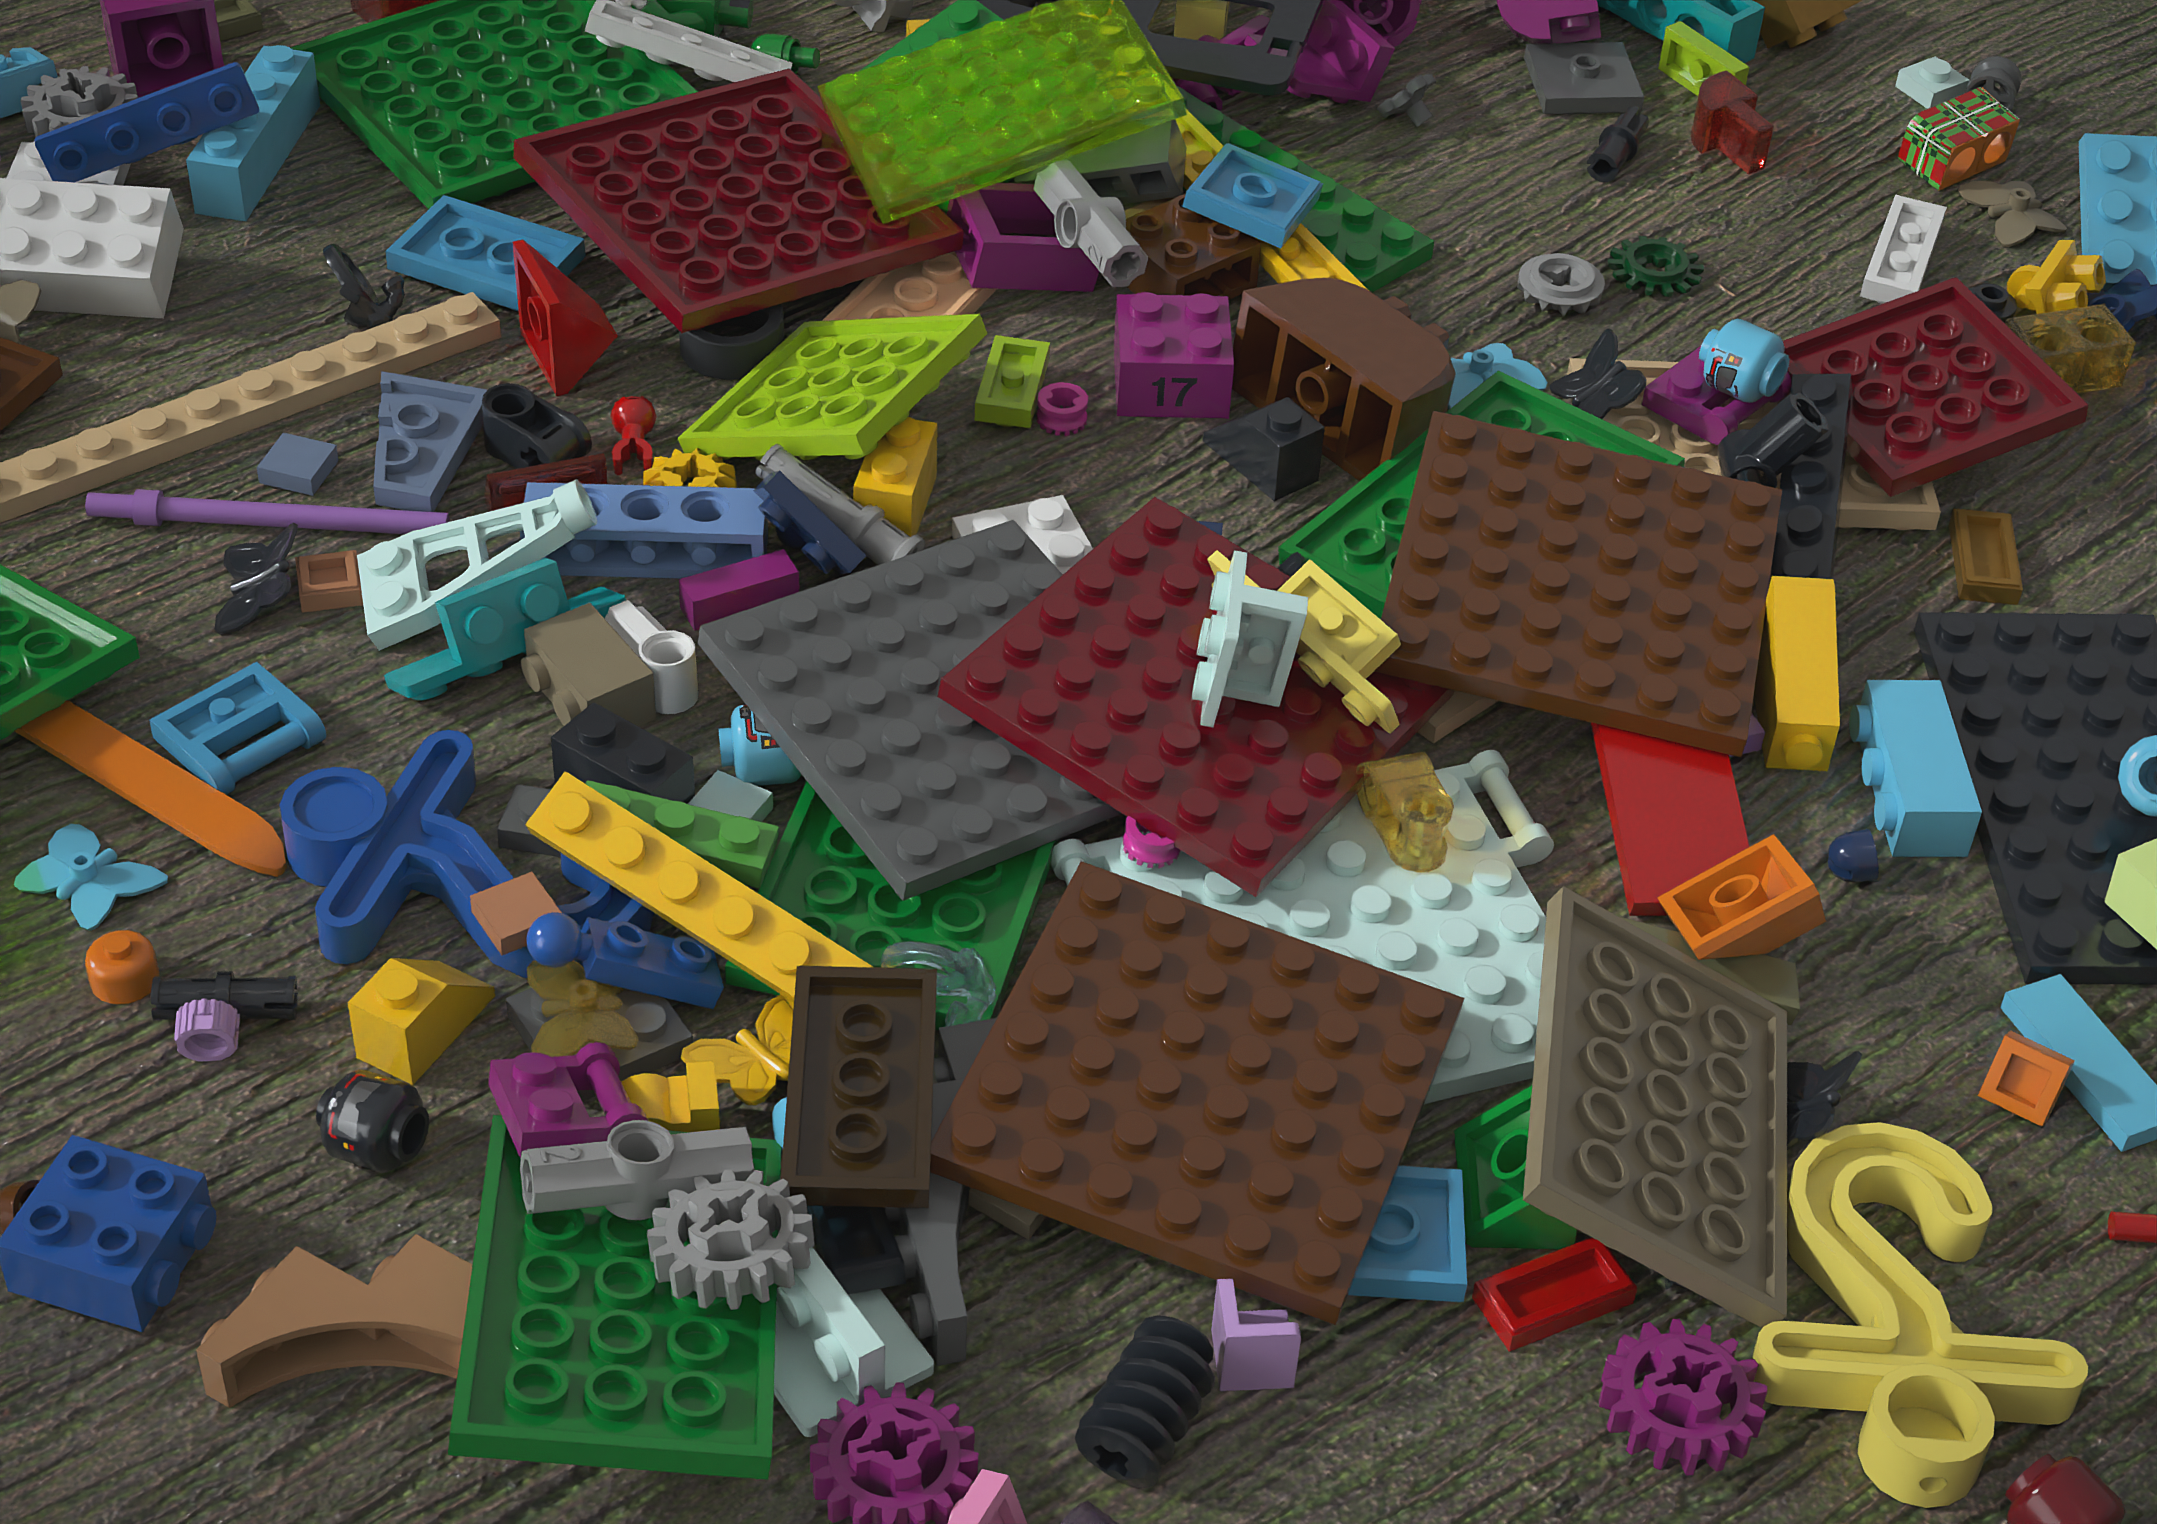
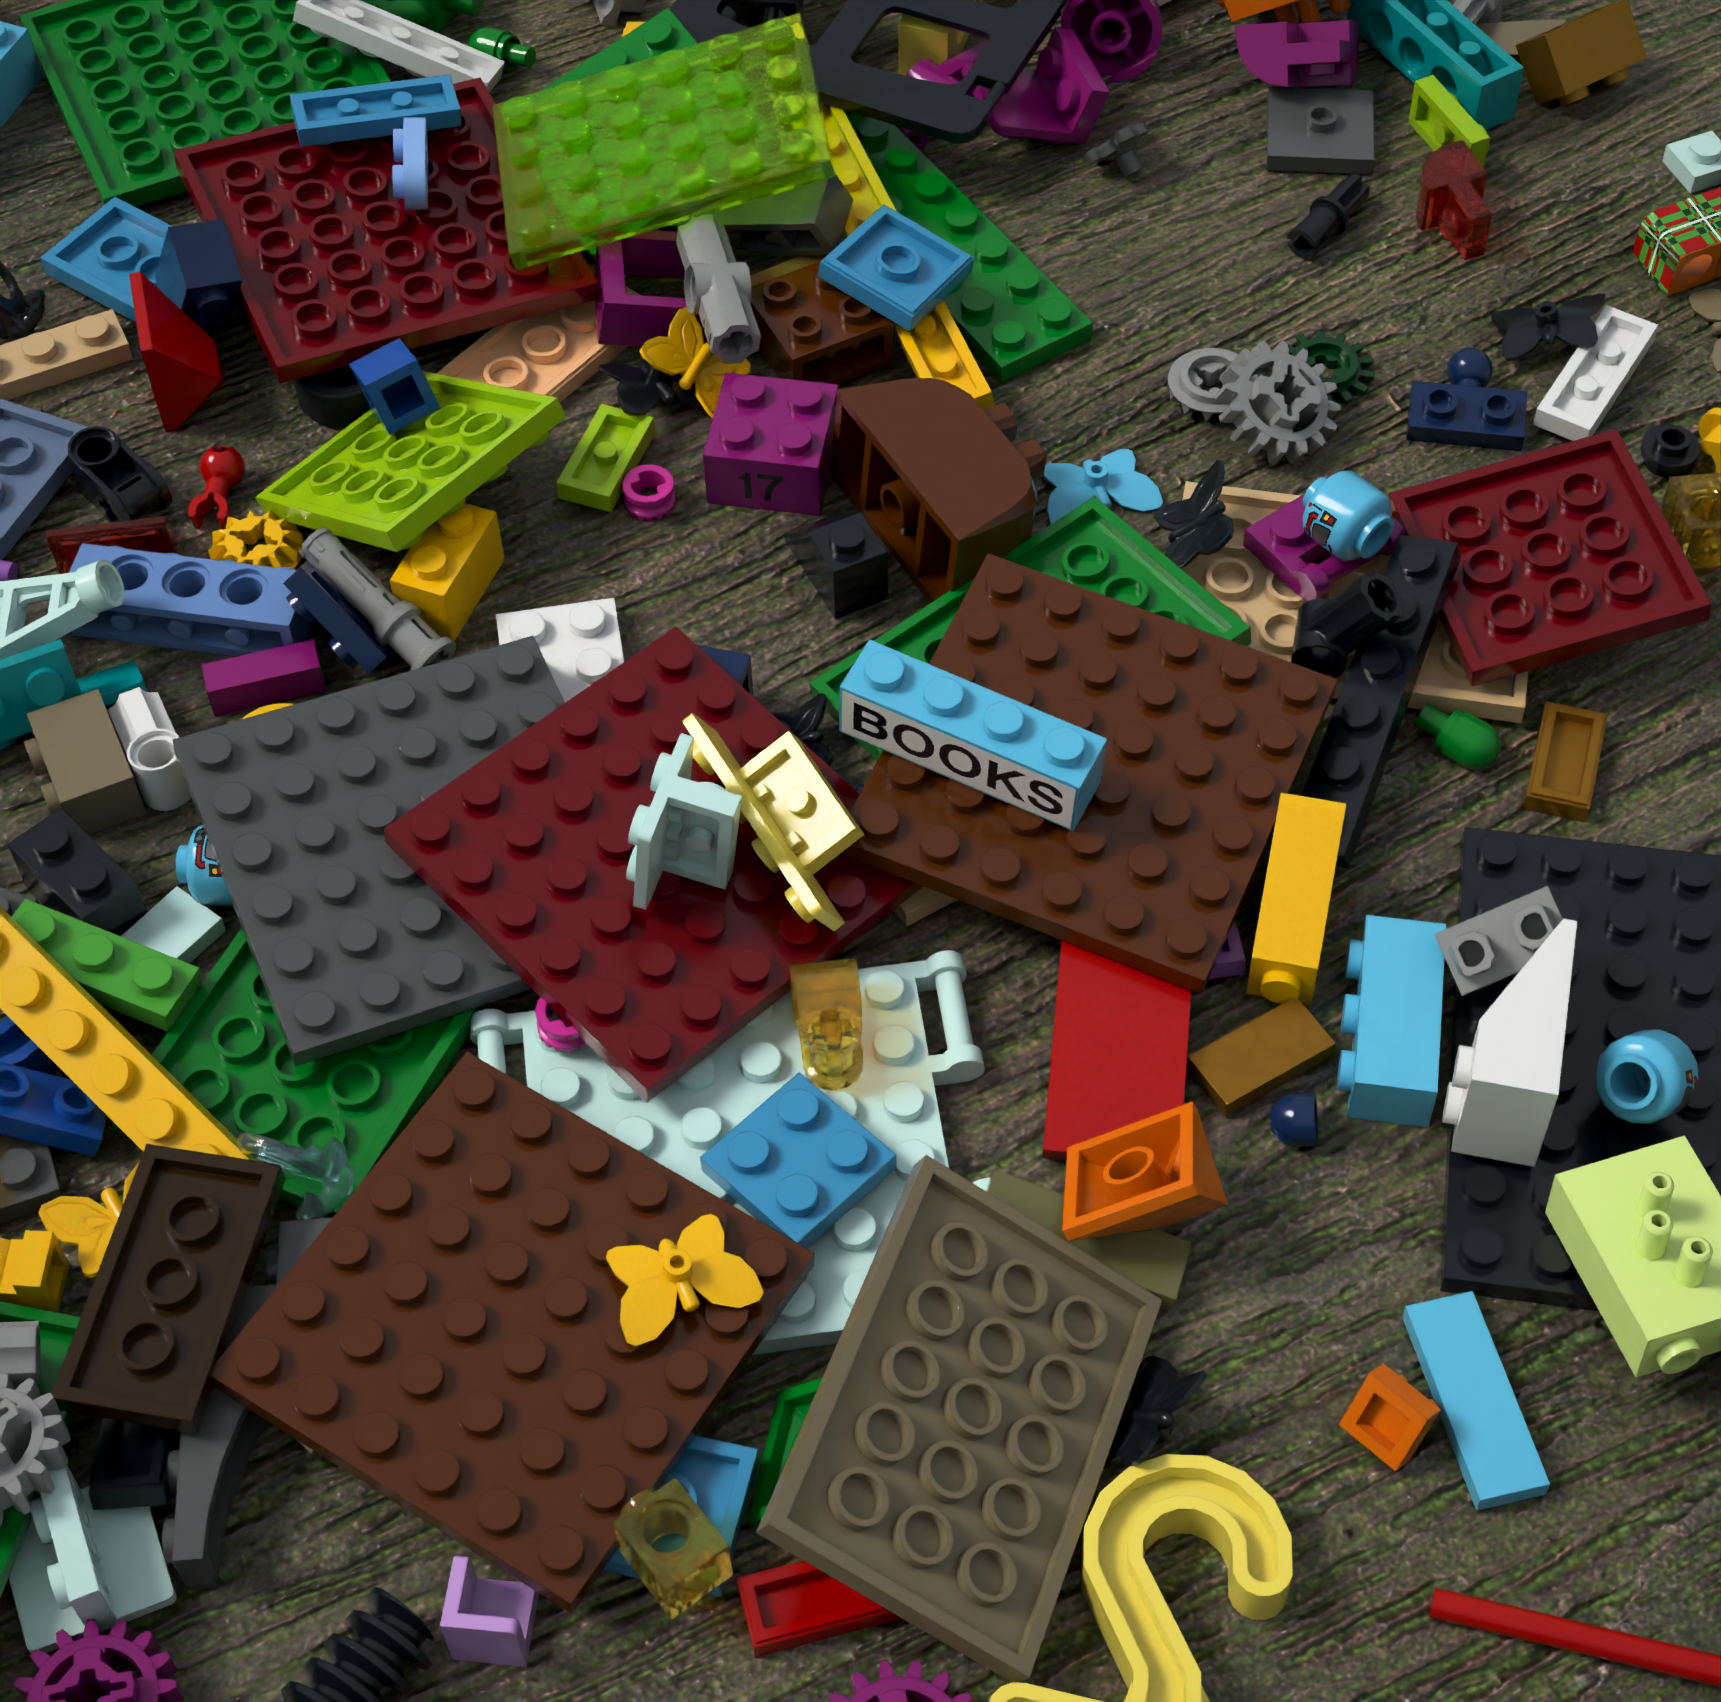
camera: 15 degrees right, 10 degrees up
(580, 236) = (200, 273): none -> dark blue brick
(705, 95) = (373, 109): none -> dark azure plate
(762, 135) = (411, 178): none -> light blue plate
(800, 325) = (394, 386): none -> blue brick
(1036, 317) = (641, 387): none -> black piece
(1075, 296) = (688, 355): none -> yellow piece
(1353, 1016) = (692, 1264): none -> yellow piece
(1419, 926) = (798, 1162): none -> dark azure plate
(1422, 1247) = (678, 1576): none -> clear yellow brick
(1483, 546) = (971, 734): none -> medium azure brick
(1631, 289) = (1277, 402): none -> light grey gear
(1794, 289) = (1465, 409): none -> dark blue plate
(1804, 808) = (1260, 1056): none -> pearl gold tile
(1831, 221) = (1567, 323): none -> black piece
(1889, 543) = (1461, 737): none -> green cylinder
(2004, 681) = (1498, 940): none -> light grey hips
(2057, 773) = (1512, 1072): none -> white slope

